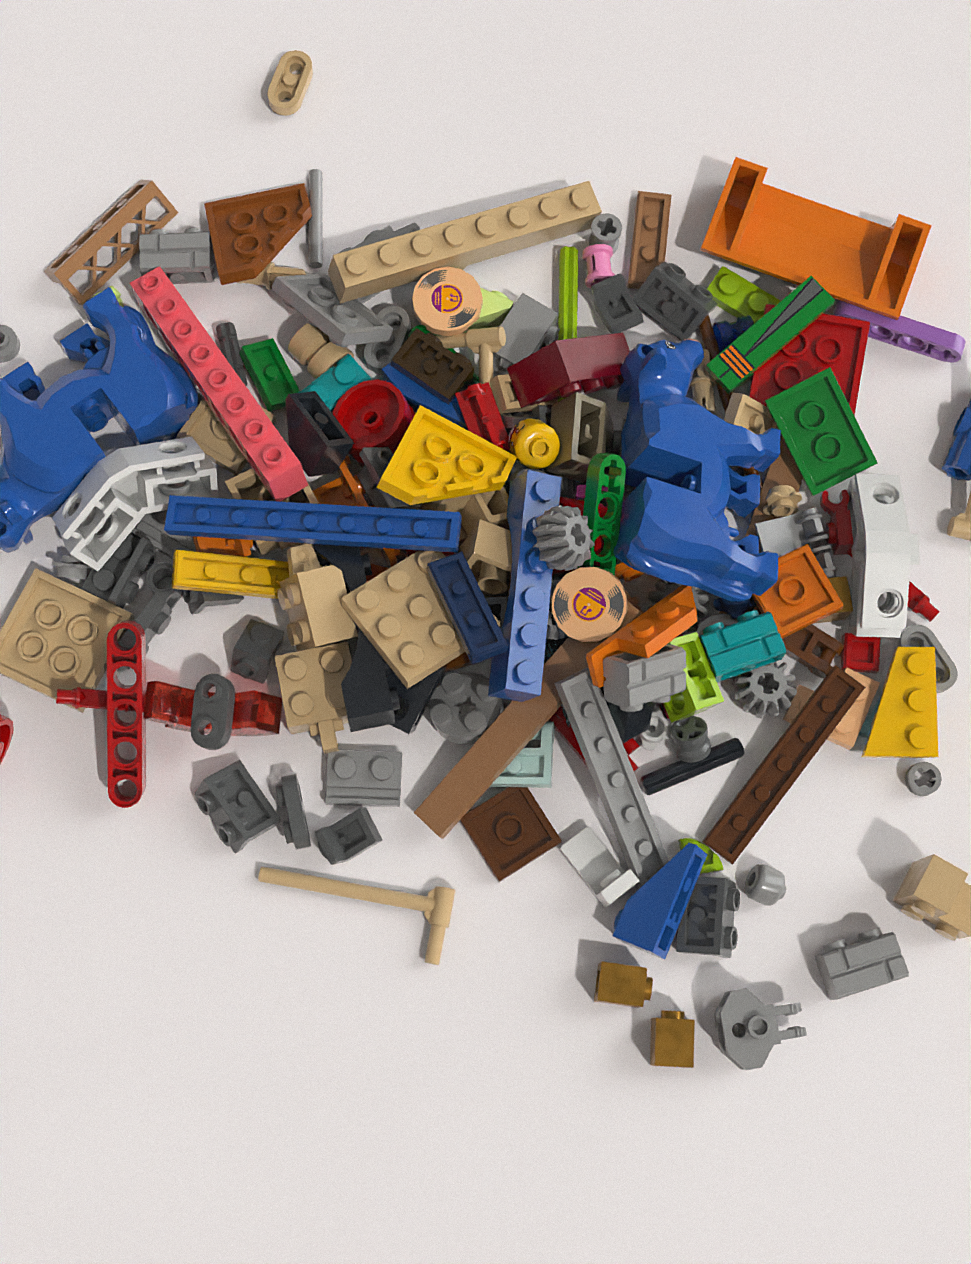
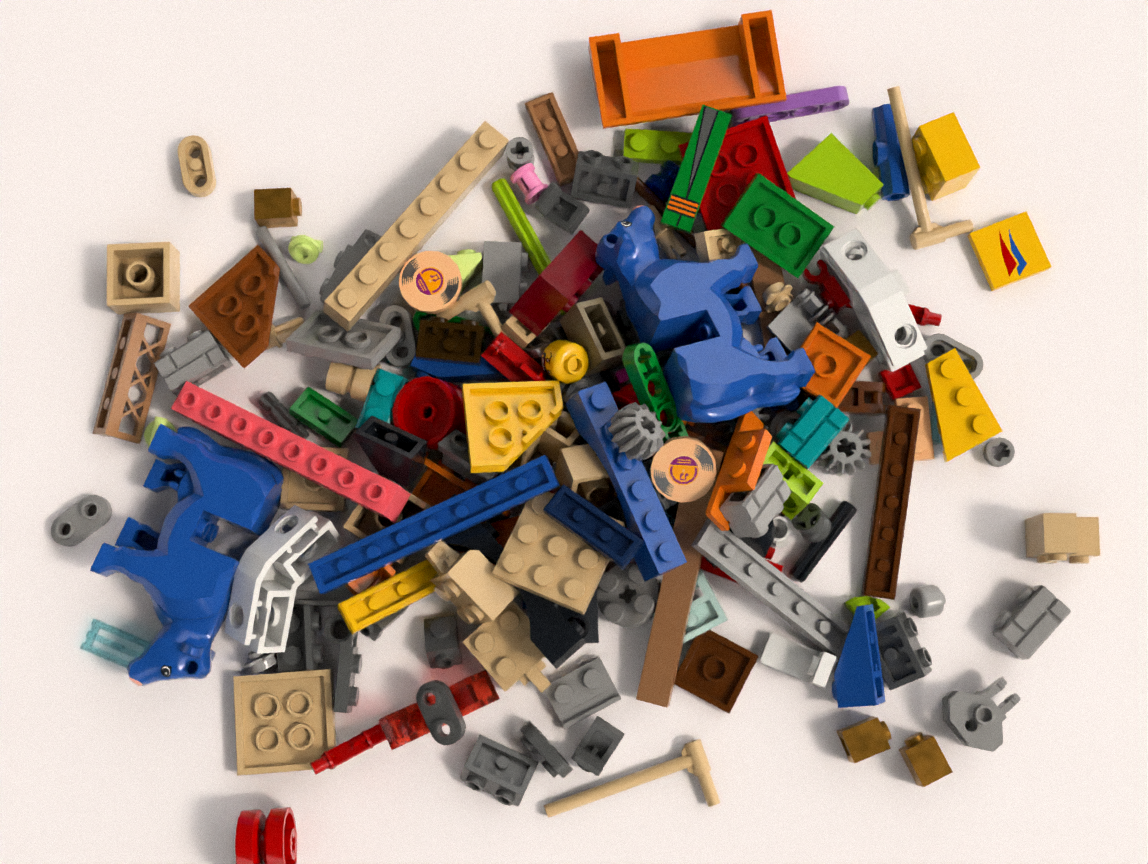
camera: 20 degrees left, 5 degrees up
(121, 731) = (380, 766): red beam -> none
(177, 153) = (143, 278): none -> tan brick
(342, 159) = (276, 207): none -> pearl gold brick
(347, 211) = (305, 249): none -> yellowish green plate
(906, 421) = (836, 177): none -> lime slope

